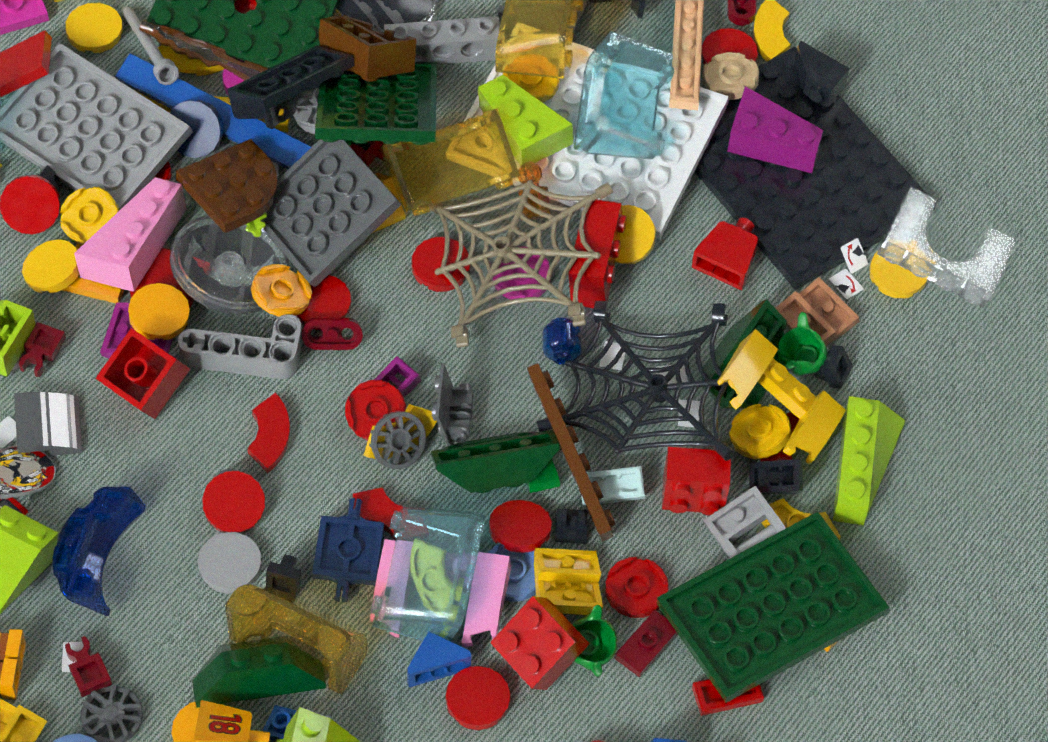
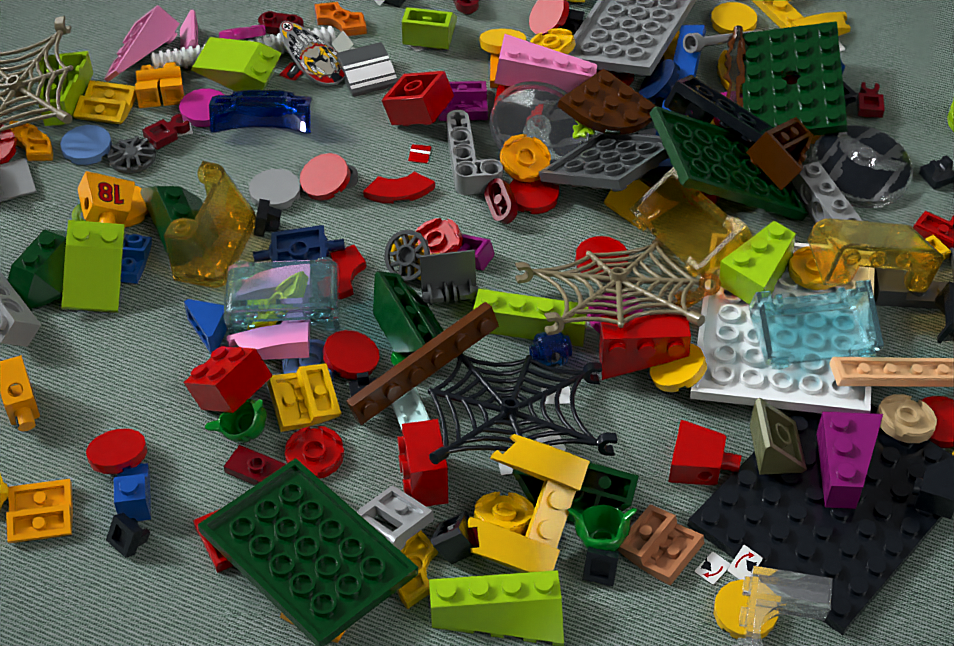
camera: 80 degrees right, 10 degrees down
(40, 346) = (431, 53): dark red plate -> none
(49, 620) = (195, 106): none -> dark pink tile
(158, 311) = (478, 96): light orange tile -> none
(212, 401) = (419, 153): none -> red sticker
(477, 697) = (177, 359): red tile -> none
(504, 360) = (524, 315): none -> lime wedge
(738, 186) = (775, 440): none -> olive slope

